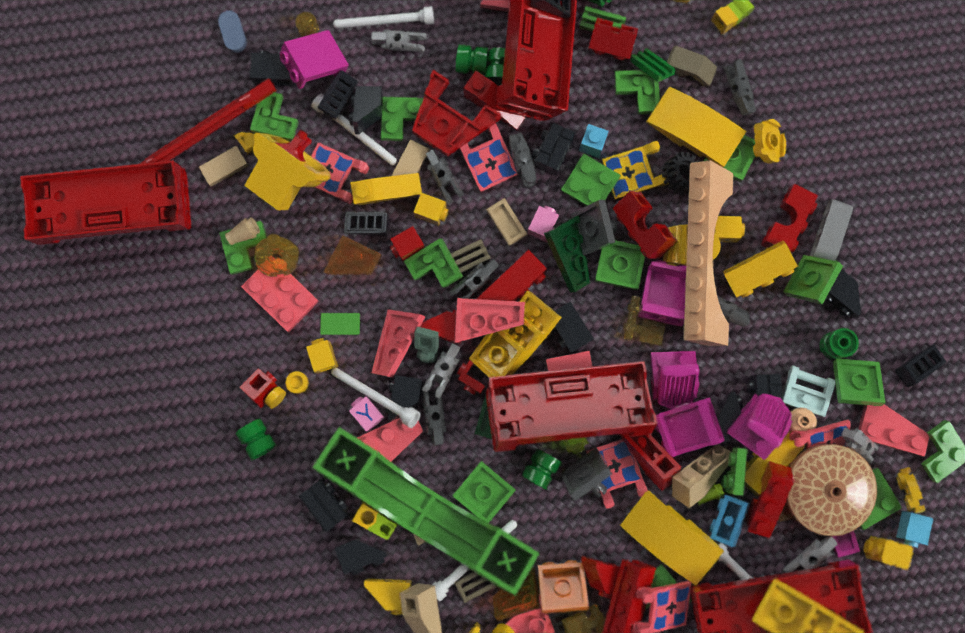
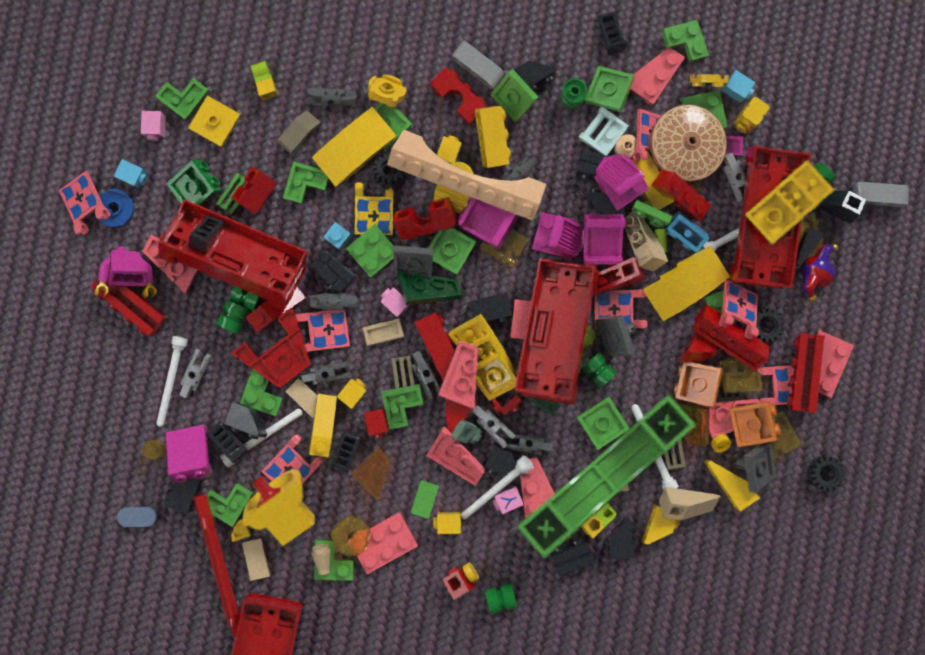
camera: 70 degrees left, 5 degrees up
(297, 382) = (463, 550): yellow tile -> none
(652, 65) = (288, 162): green tile -> none
(860, 443) = (659, 106): light grey hinge -> none

